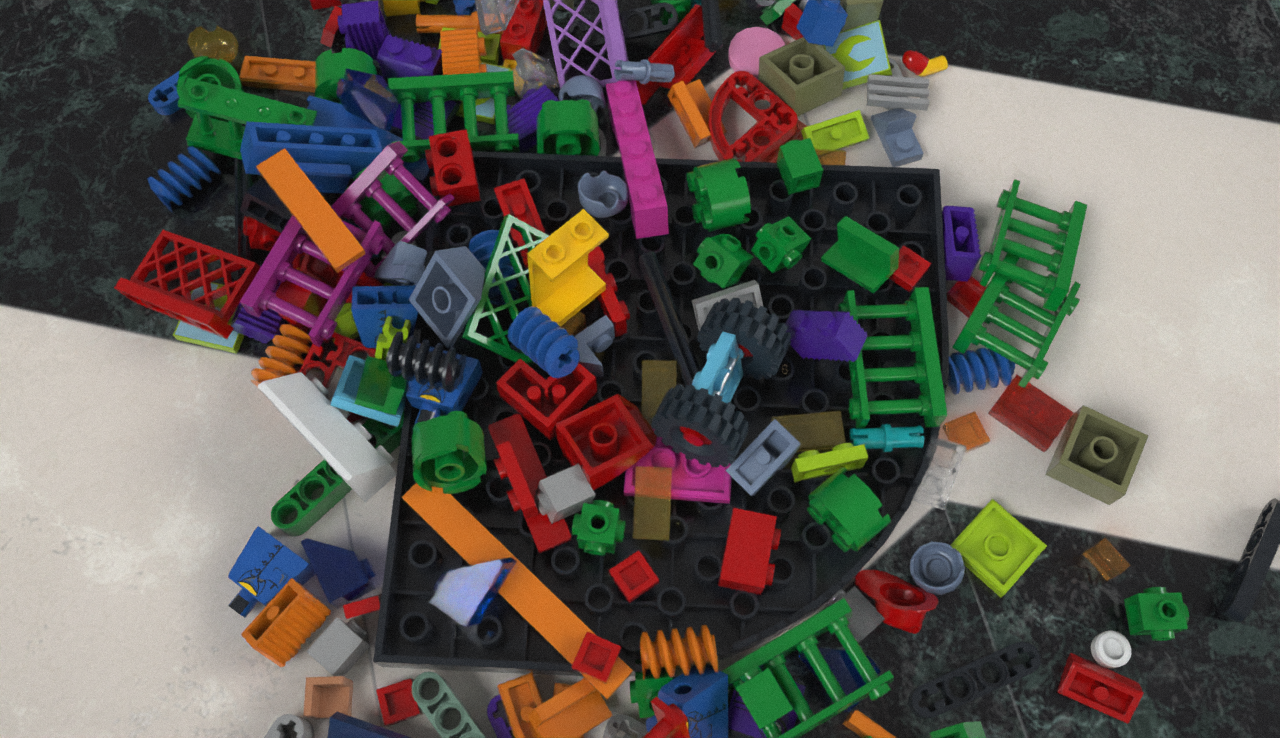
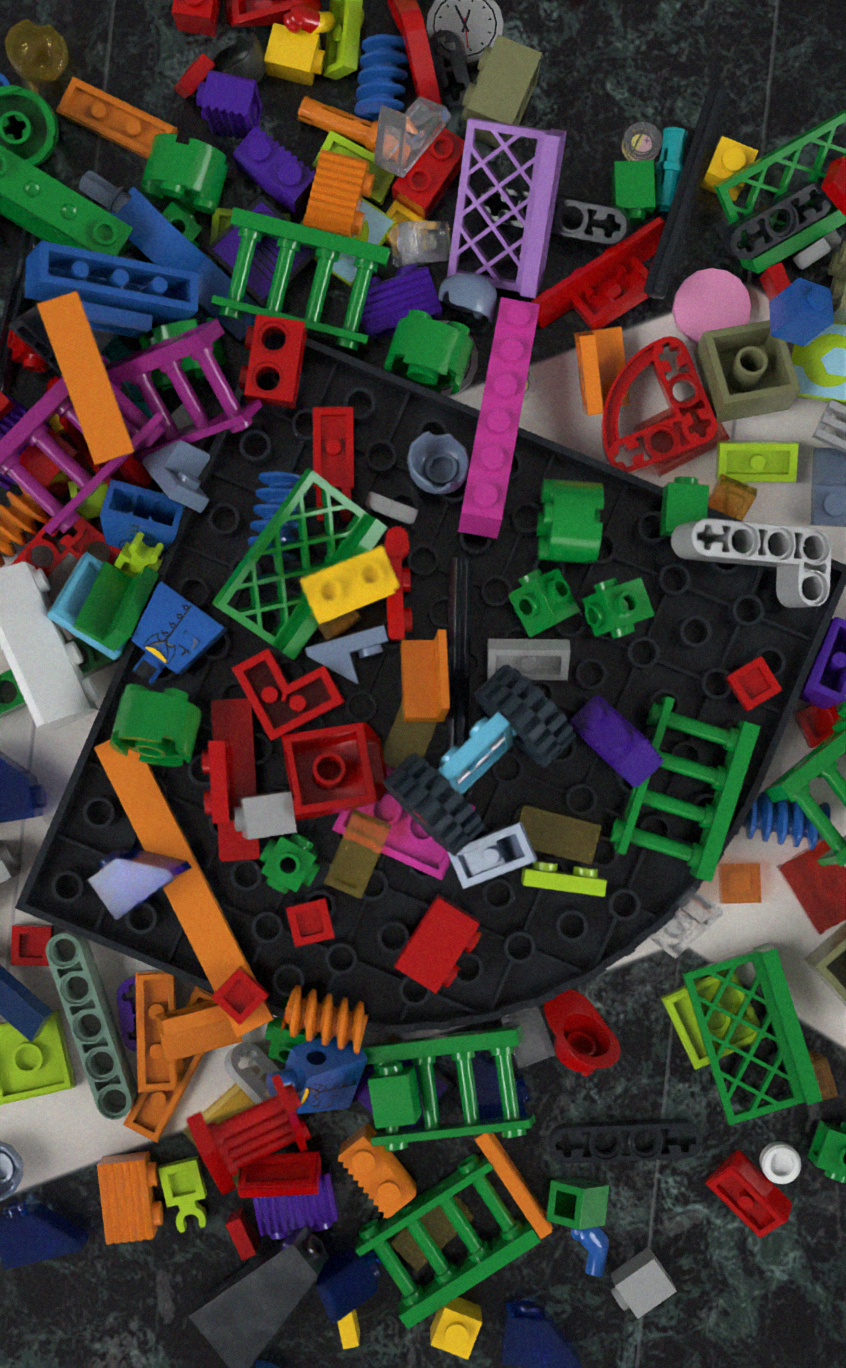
camera: 15 degrees right, 20 degrees up
(362, 606) = (23, 836): red tile -> none
(367, 98) = (201, 225): clear blue slope -> none
(425, 364) = (160, 619): black piece -> none
(449, 292) = (217, 539): sand blue slope -> none
(544, 342) = (296, 646): blue piece -> none
(644, 71) = (553, 299): sand blue axle -> none
(655, 346) = (425, 679): none -> orange panel
(848, 510) = (557, 944): green brick -> none
(862, 255) = (704, 654): green panel -> none
(868, 163) = (751, 548): none -> light grey beam
(888, 437) = (639, 873): teal pin -> none
(937, 568) = (637, 1019): sand blue hair -> none
(1061, 533) = (784, 1024): none -> green fence

